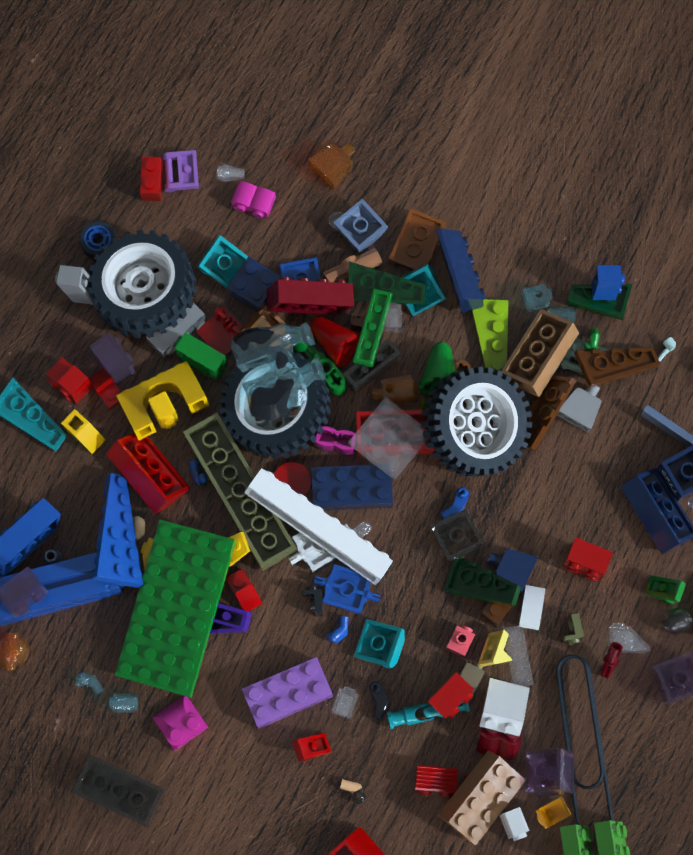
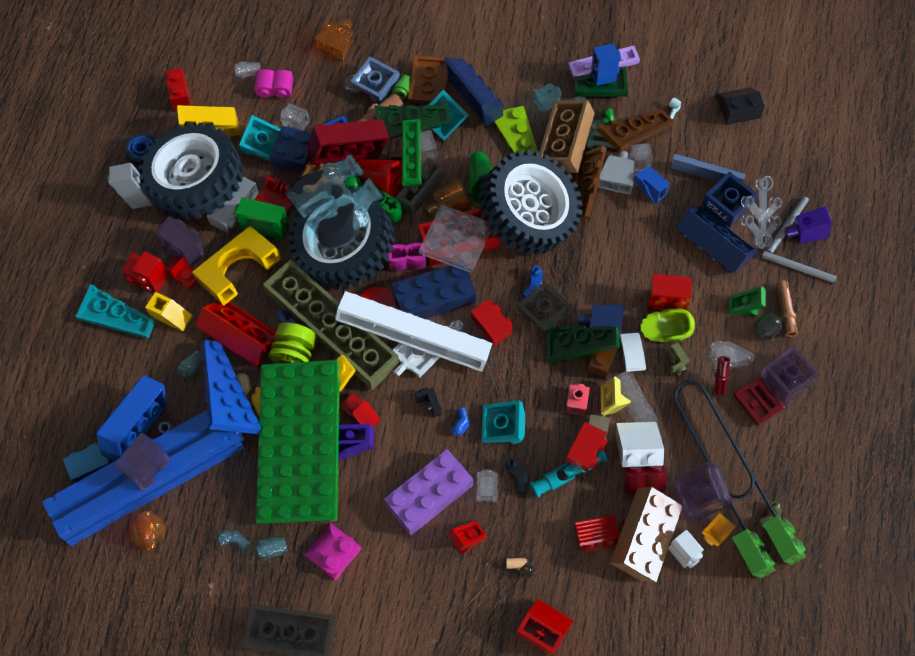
camera: 15 degrees left, 10 degrees down
(90, 493) = (189, 365): none -> clear light blue cone
(163, 410) = (239, 272): yellow brick -> none
(181, 228) = (220, 117): none -> yellow wedge
(186, 170) = (208, 77): medium lavender plate -> none
(195, 506) = (292, 344): none -> lime wheel
(264, 246) = (294, 117): none -> clear brick
(346, 589) = (456, 384): blue plate -> none
(386, 242) = (402, 87): none -> bright green cone
(400, 535) = (491, 322): none -> red brick
(576, 591) = (668, 325): none -> lime hair
(611, 397) = (641, 155): none -> clear brick
(611, 431) = (652, 184): none -> blue piece
(617, 809) = (776, 507): none -> olive arm
(634, 272) = (583, 66): none -> lavender plate
(634, 697) = (755, 405): none -> dark red plate

